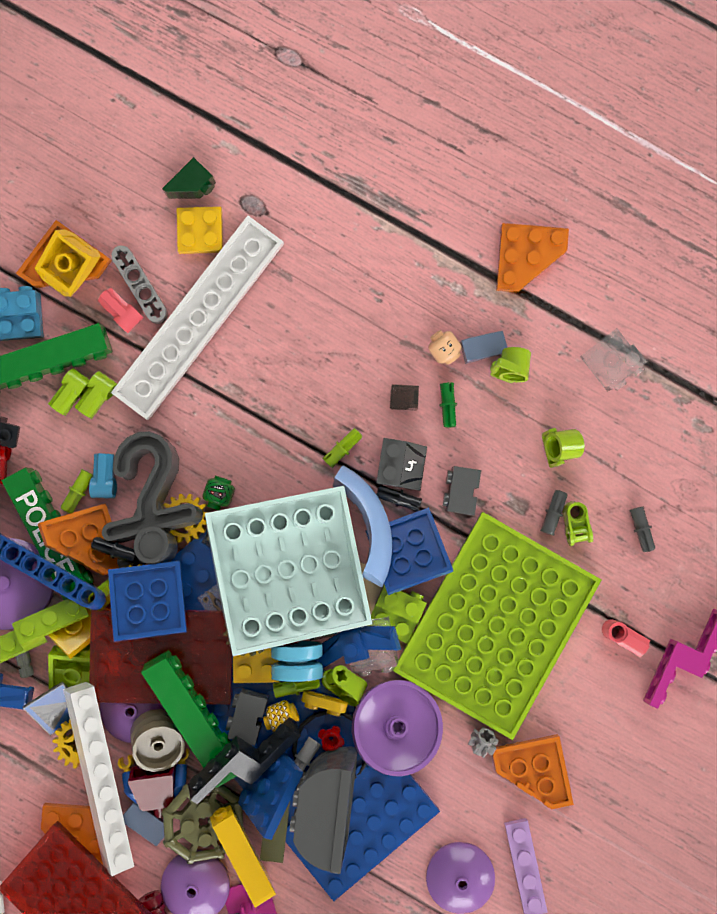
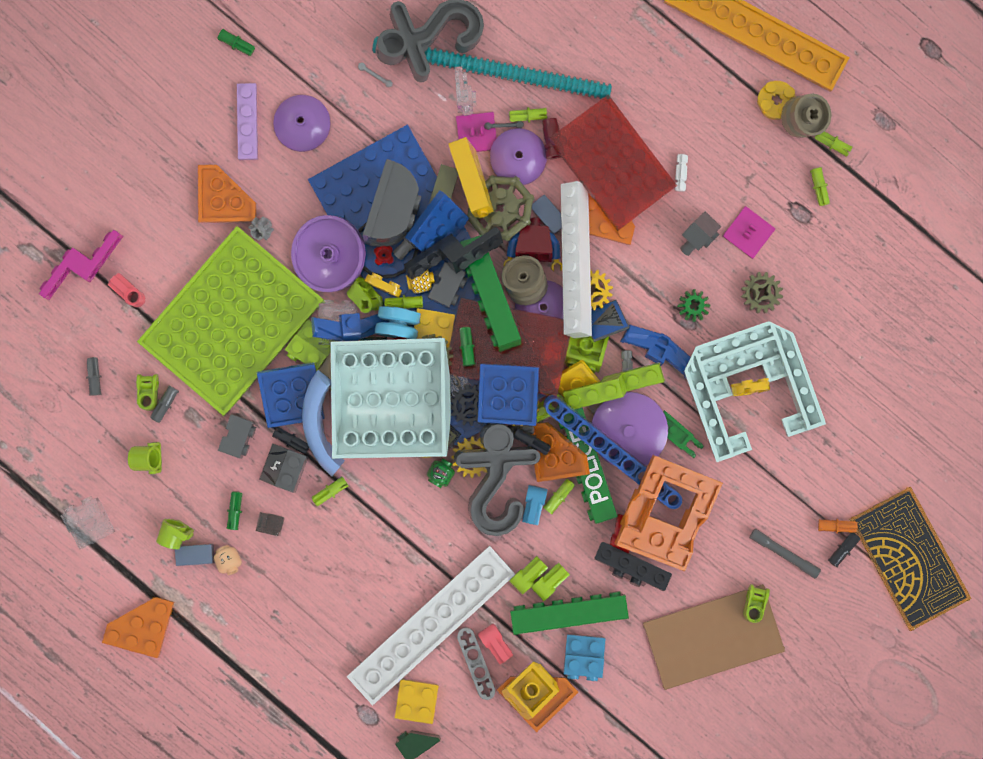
camera: 165 degrees left, 0 degrees up
(201, 571) = (462, 399): none -> black gear
(208, 649) = (467, 346): none -> green axle

